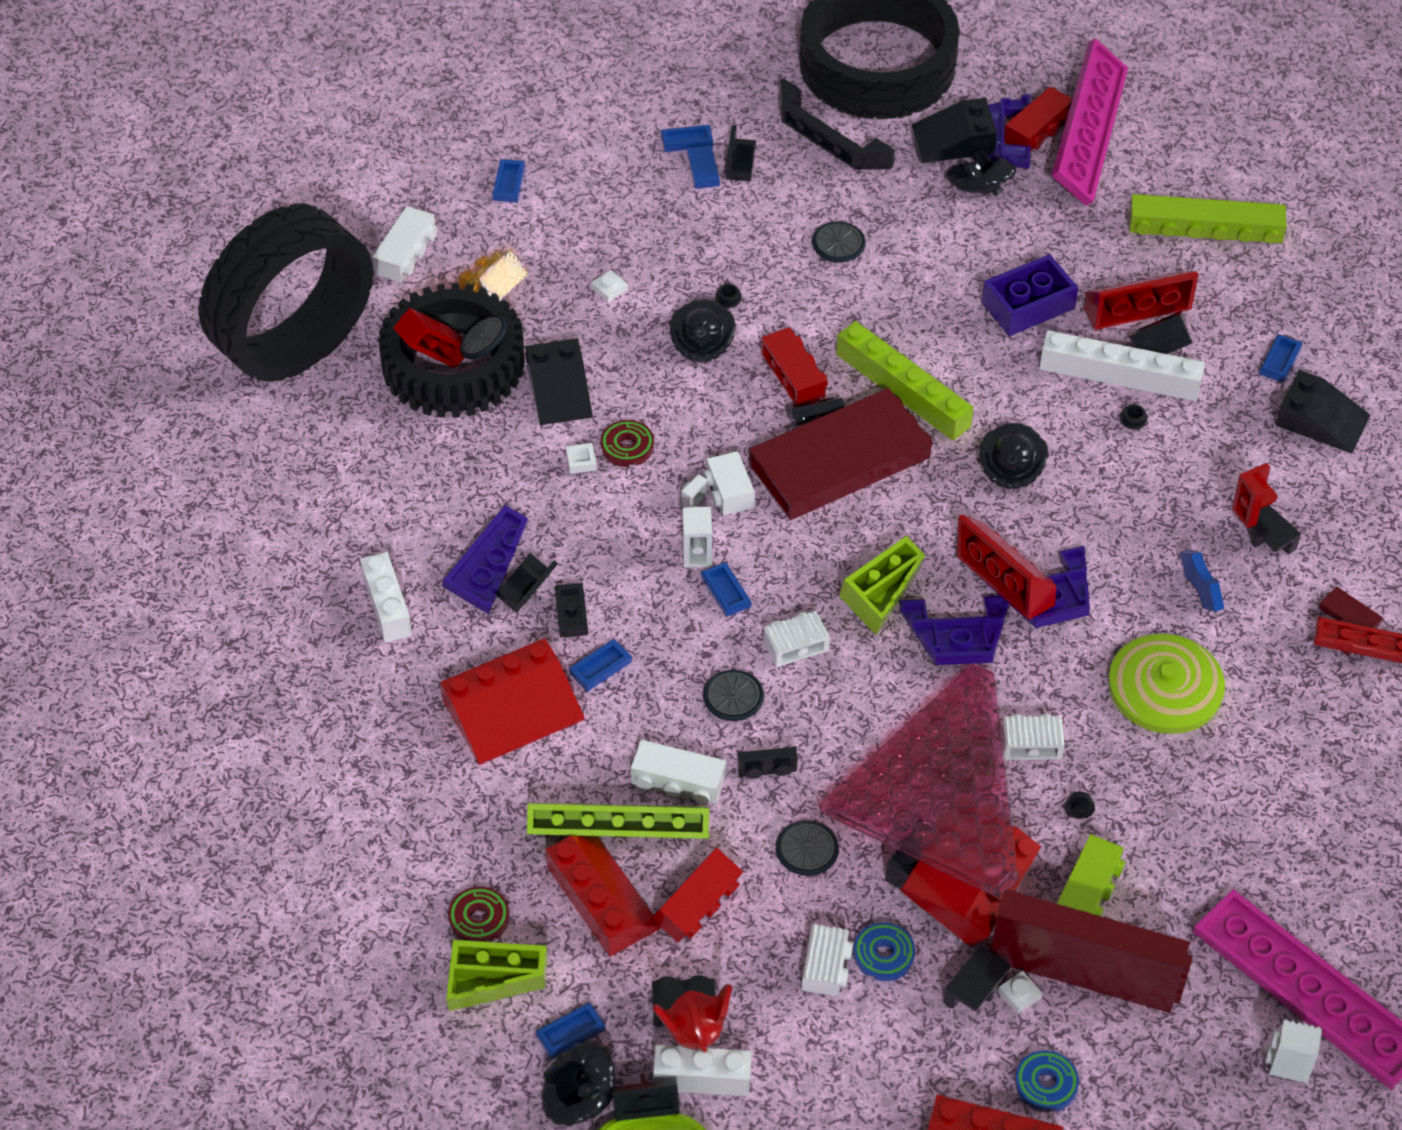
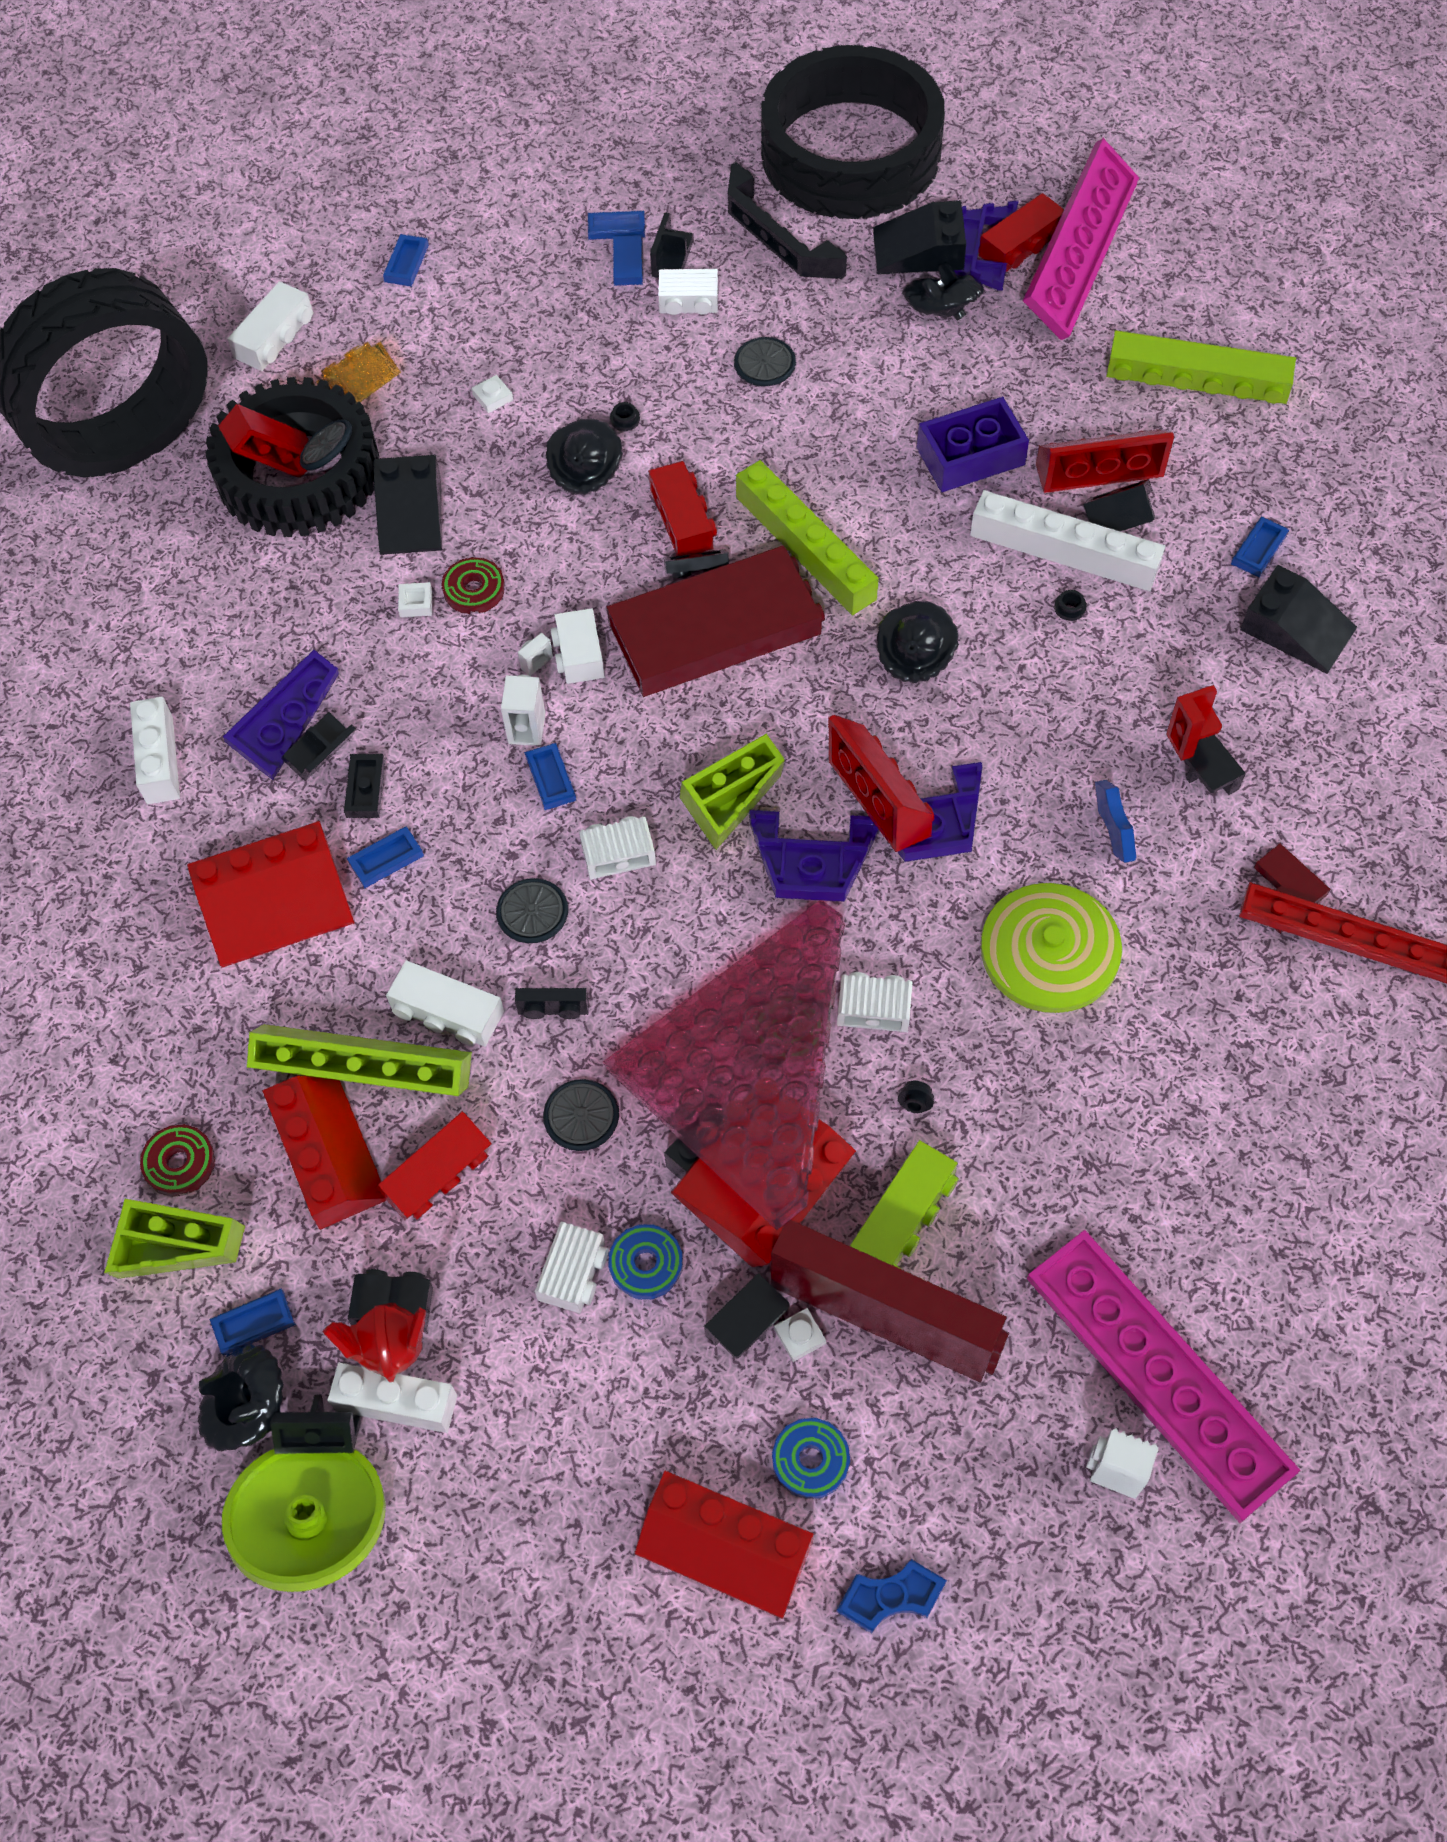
camera: 10 degrees right, 10 degrees up
(762, 188) = (688, 291): none -> white brick

